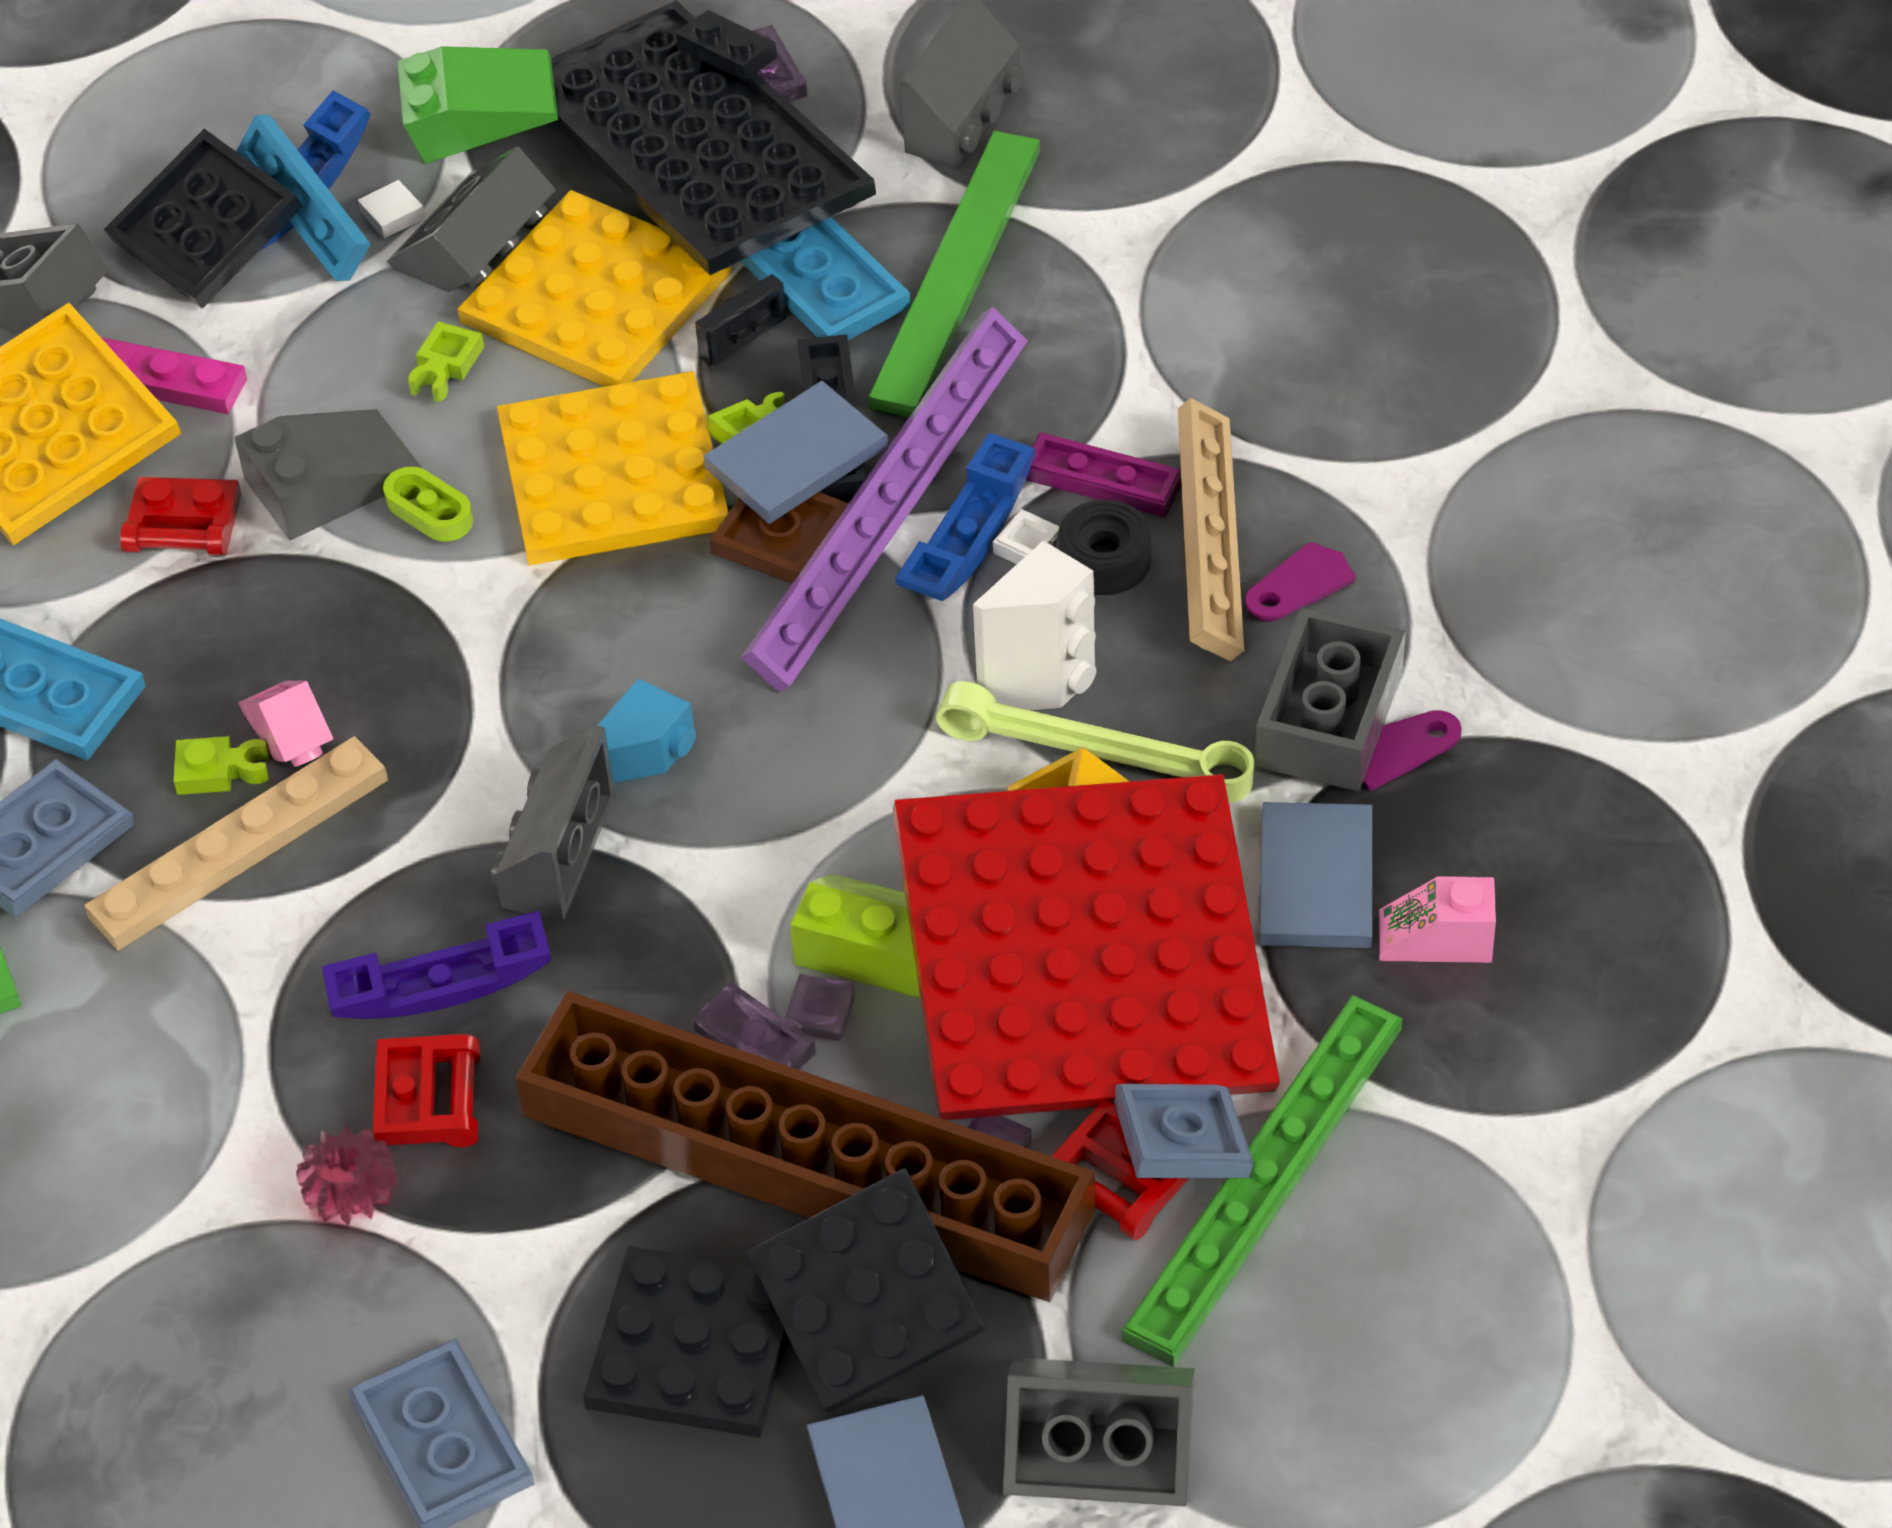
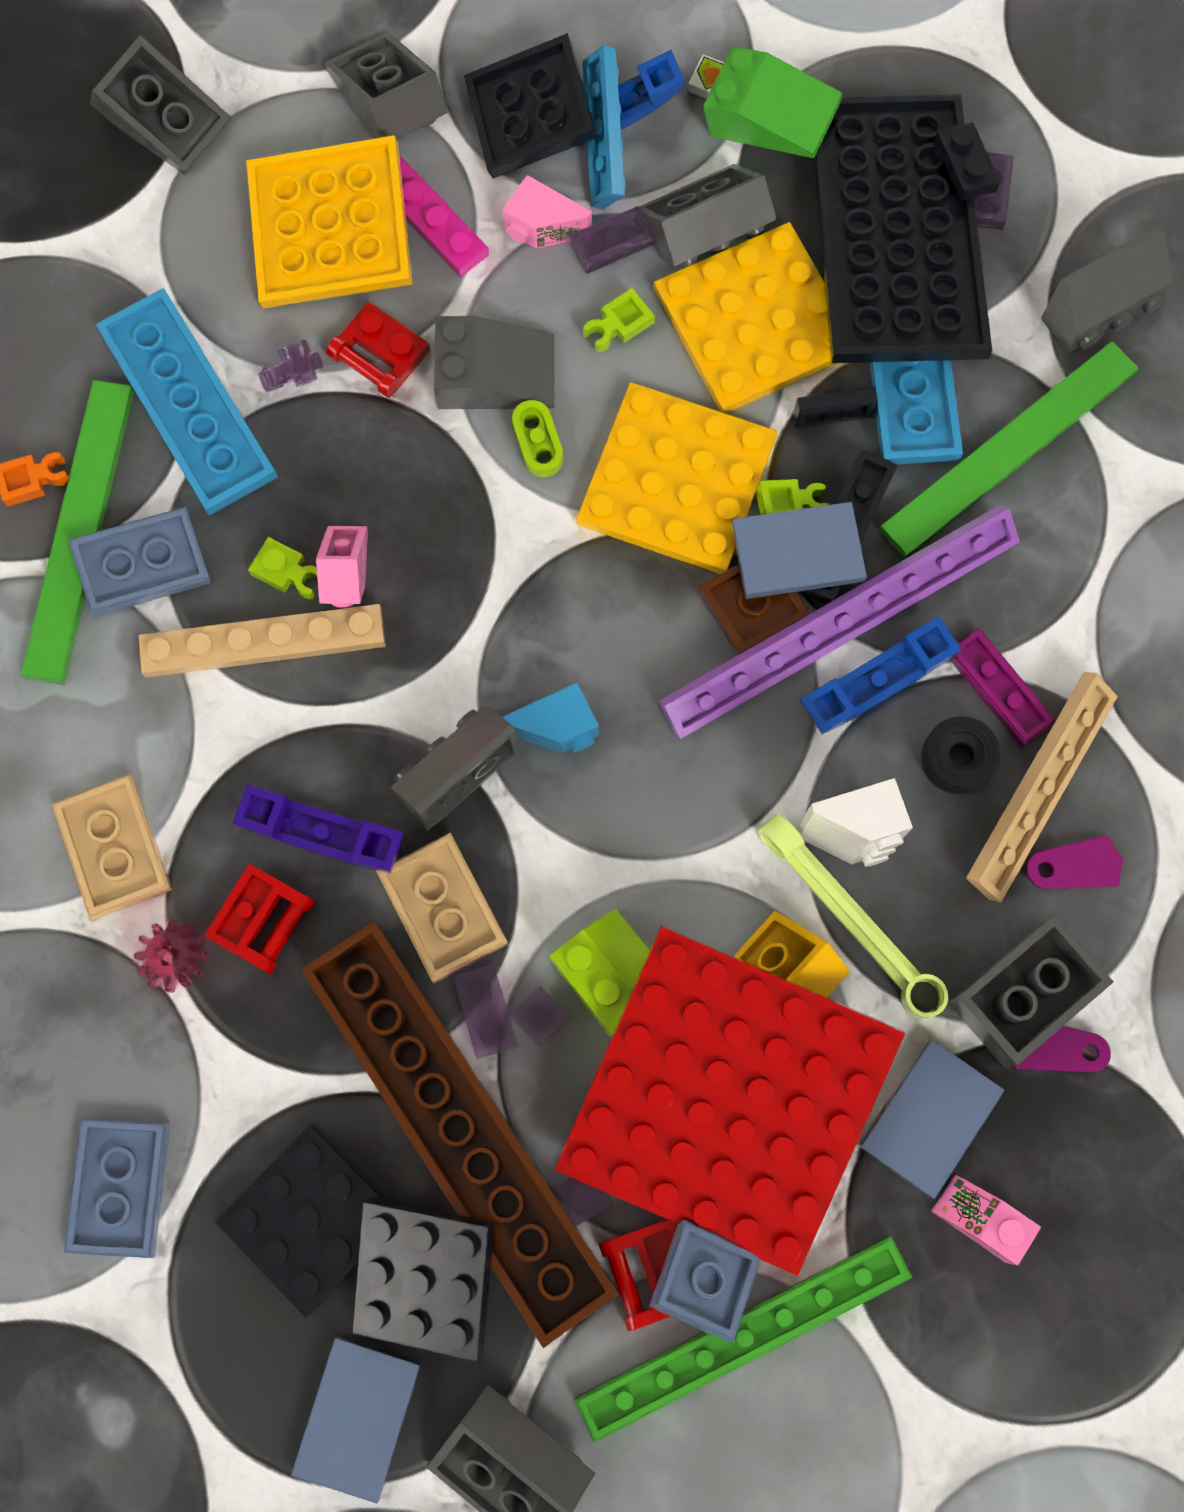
camera: 30 degrees right, 25 degrees up
(91, 570) = (297, 365): none -> clear purple plate
(195, 1123) = (111, 847): none -> tan tile
(292, 307) = (542, 215): none -> bright pink slope
(382, 294) = (612, 239): none -> clear purple plate
(385, 113) = (704, 76): none -> tile
(391, 209) = (663, 165): white tile -> none
(633, 967) = (442, 908): none -> tan tile
(1023, 535) = (914, 713): white tile -> none

